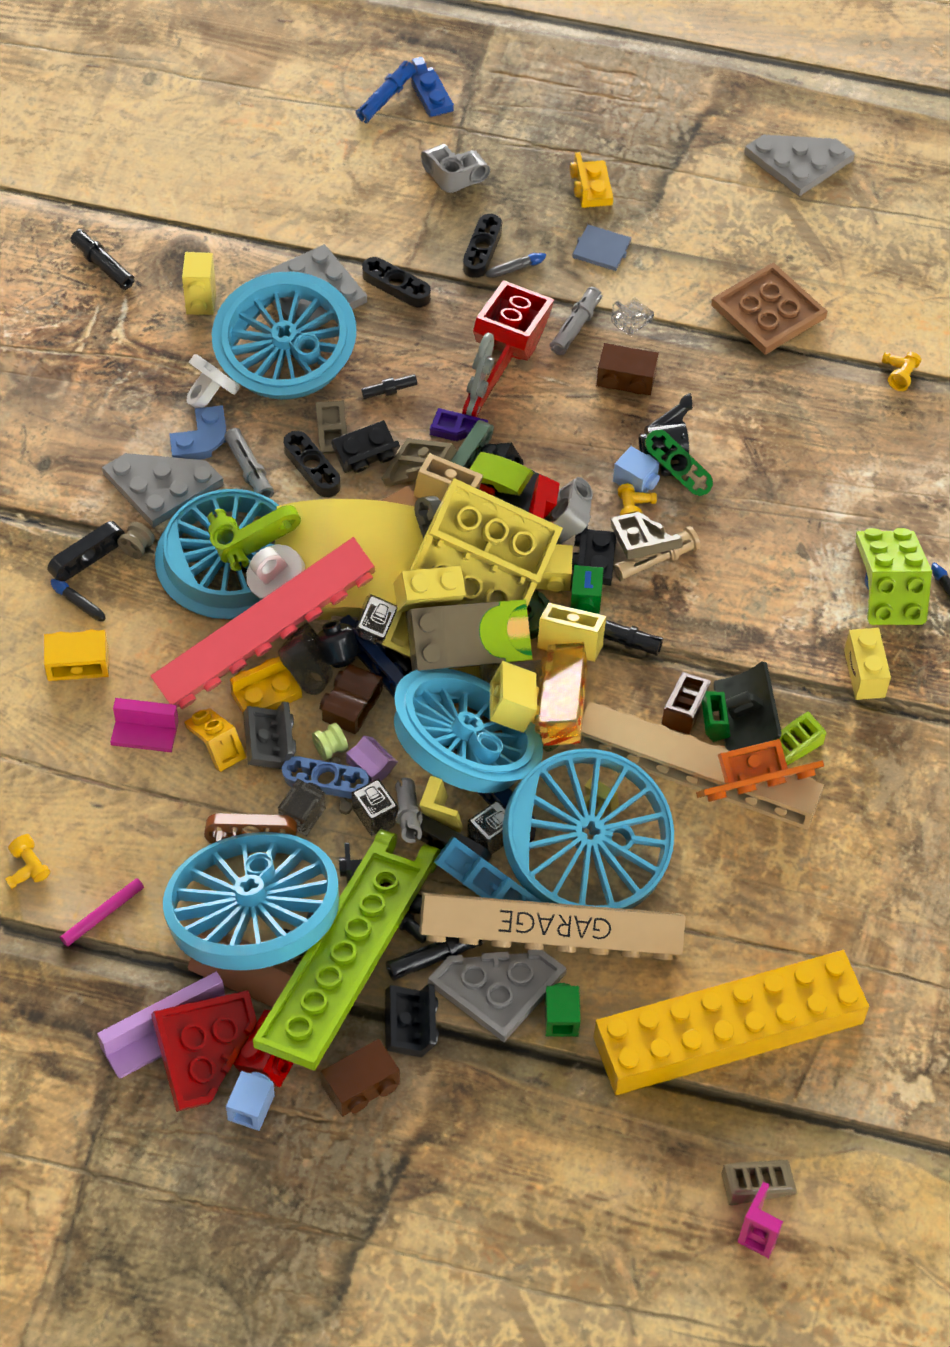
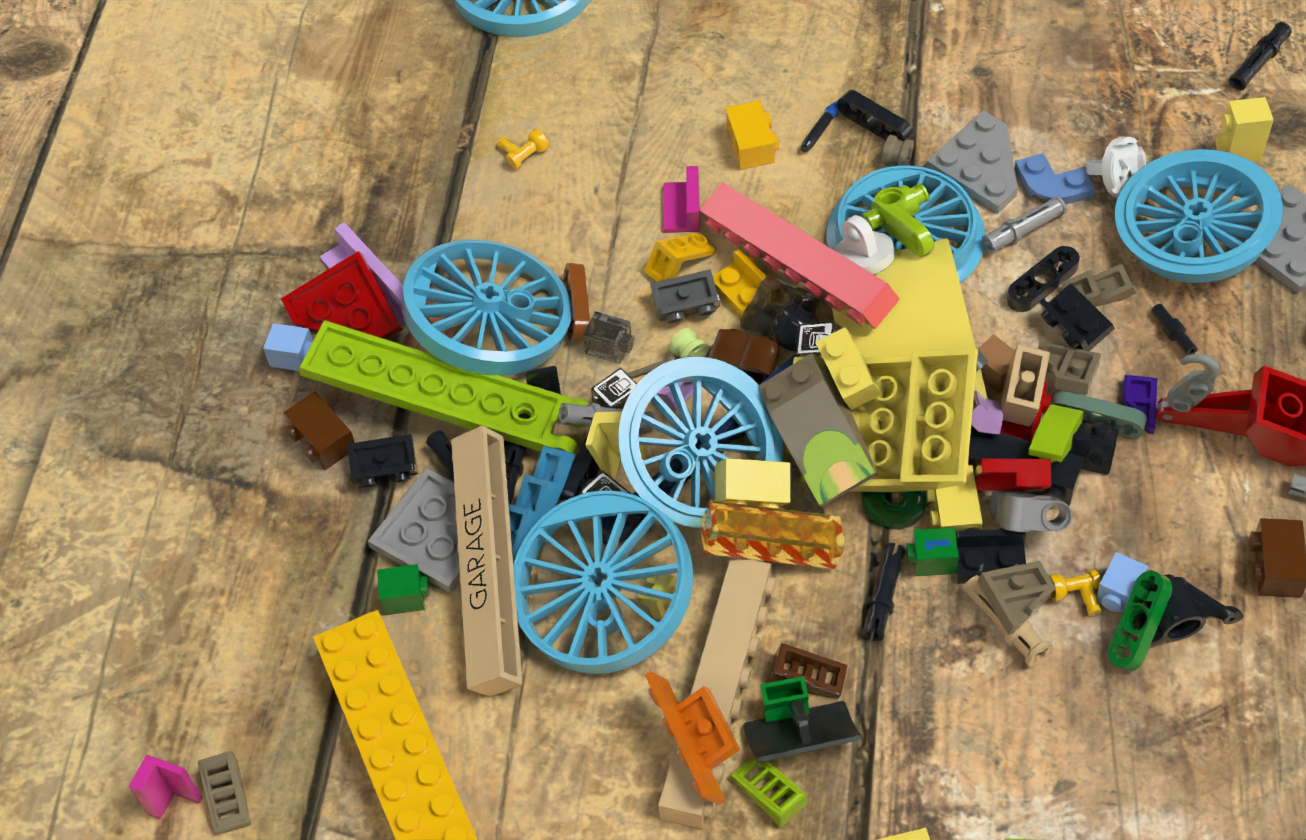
camera: 90 degrees right, 0 degrees up
(101, 912) = (481, 212): dark pink bar -> none
(317, 767) = (642, 341): medium blue beam -> none
(570, 625) = (865, 538): light yellow brick -> none

